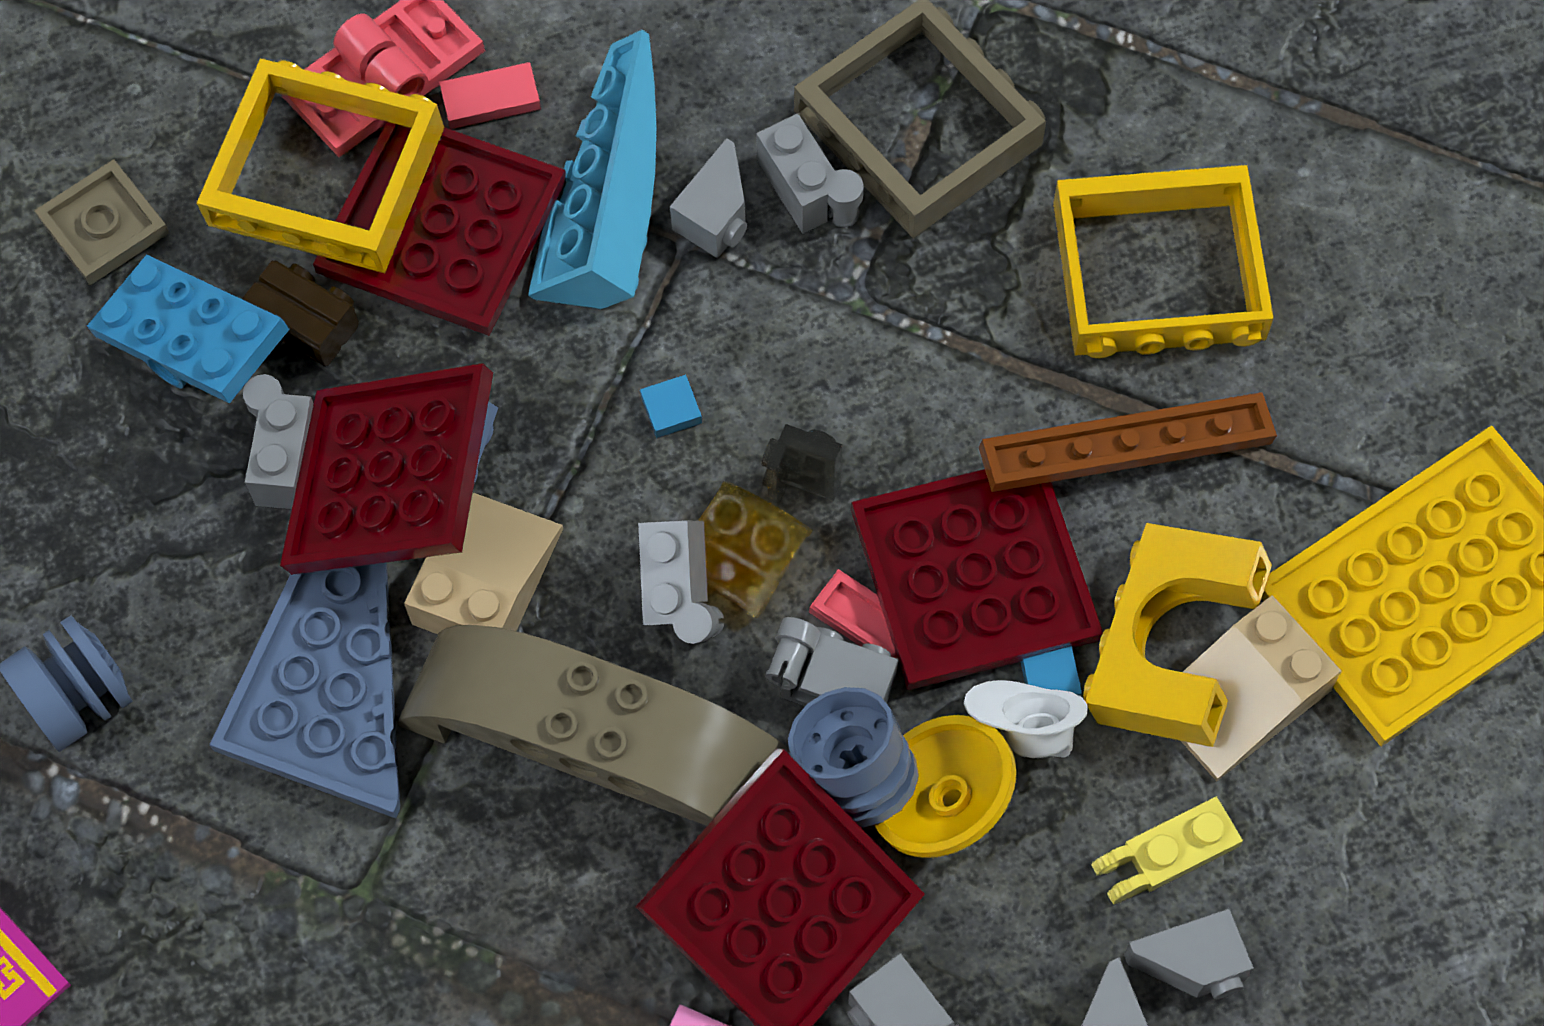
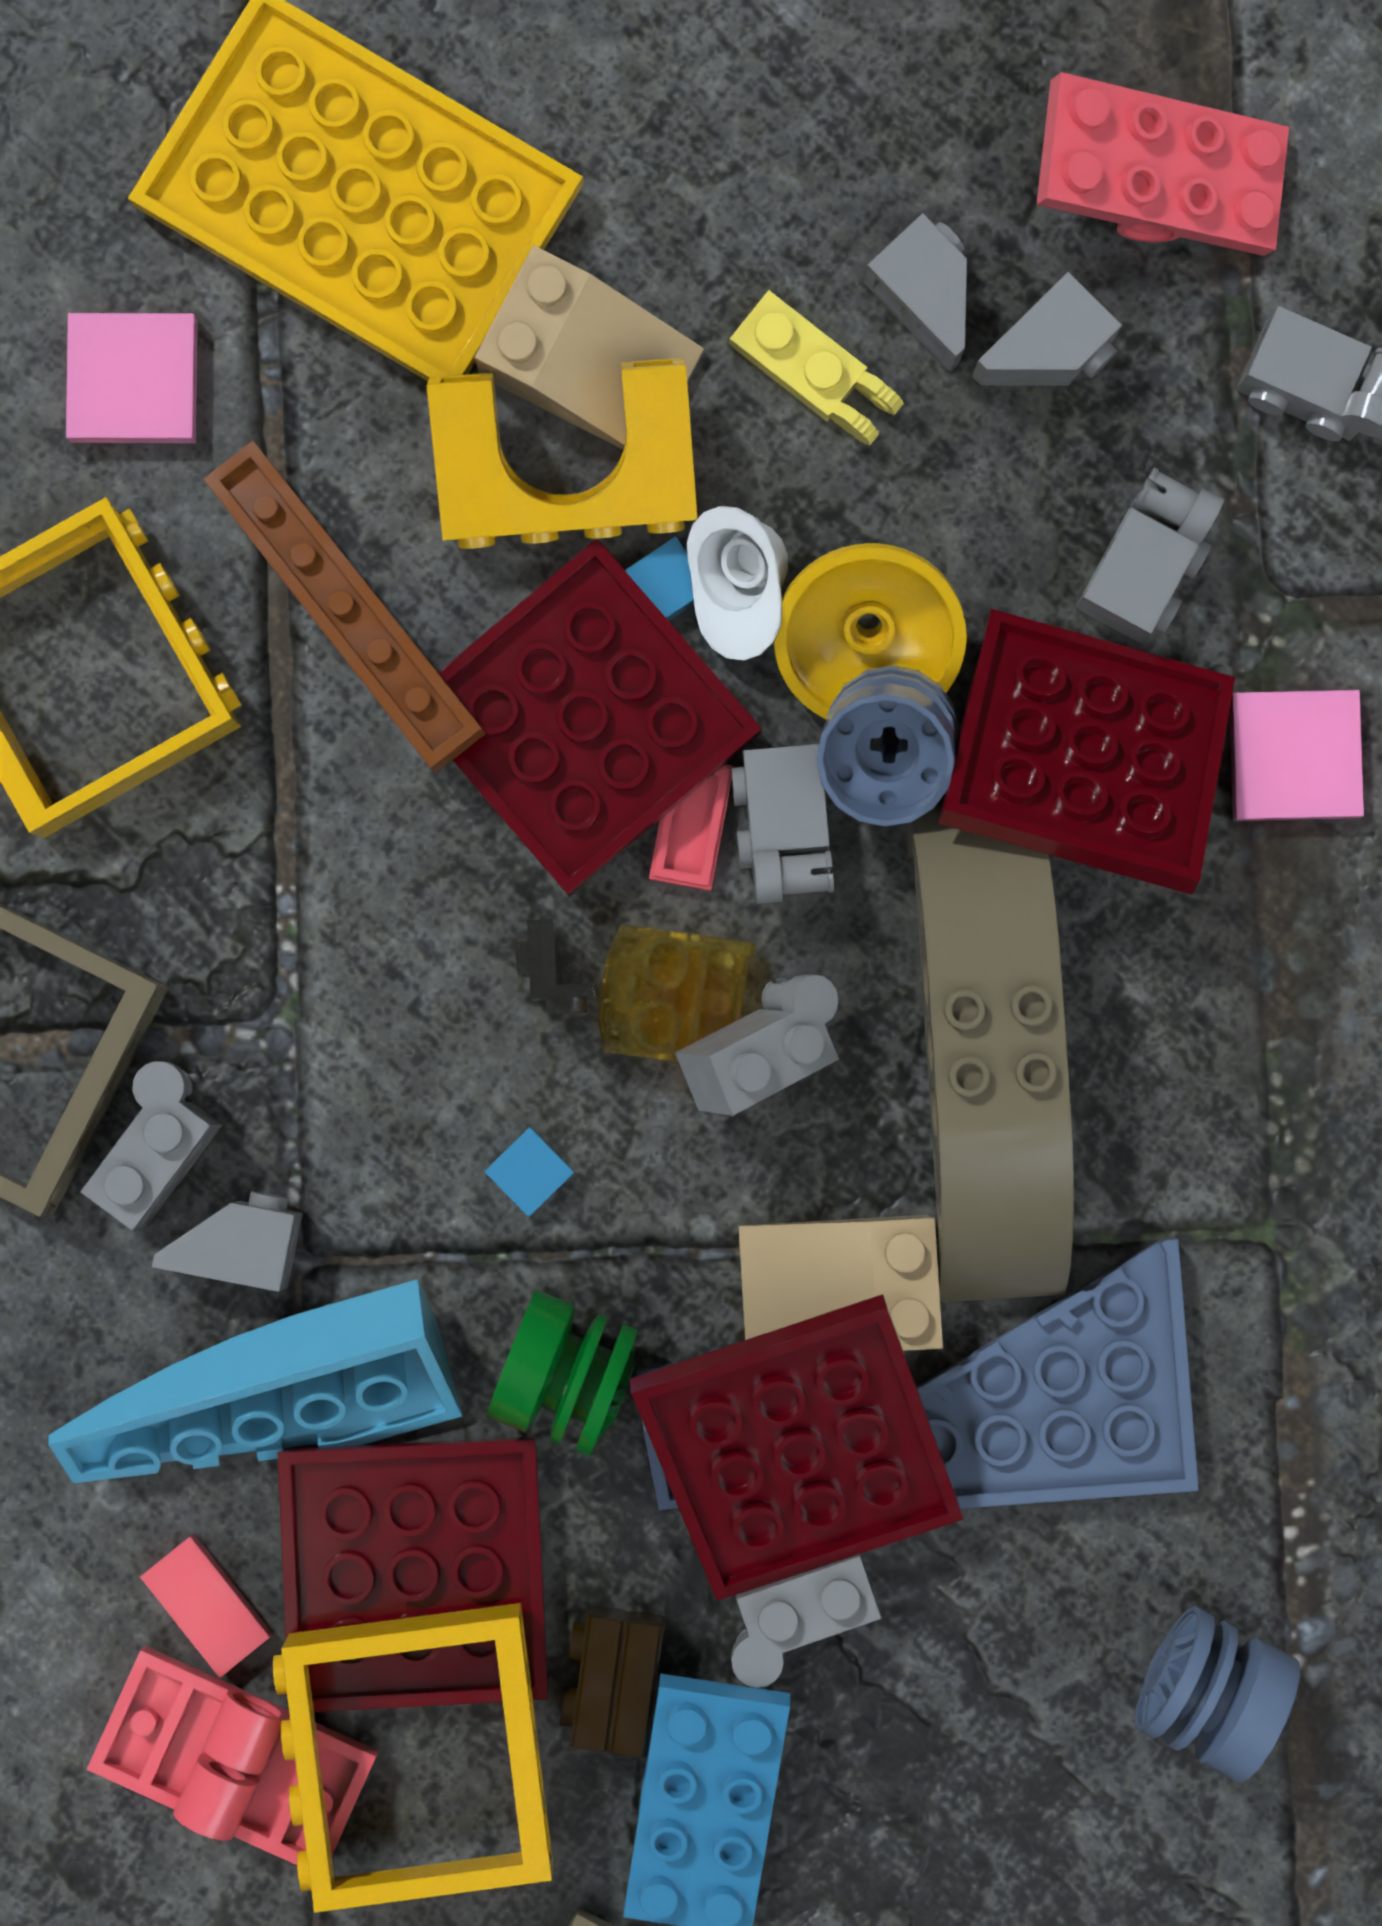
camera: 120 degrees left, 20 degrees up
(528, 349) = (563, 1373): none -> green wheel
(1358, 382) = (131, 378): none -> bright pink tile

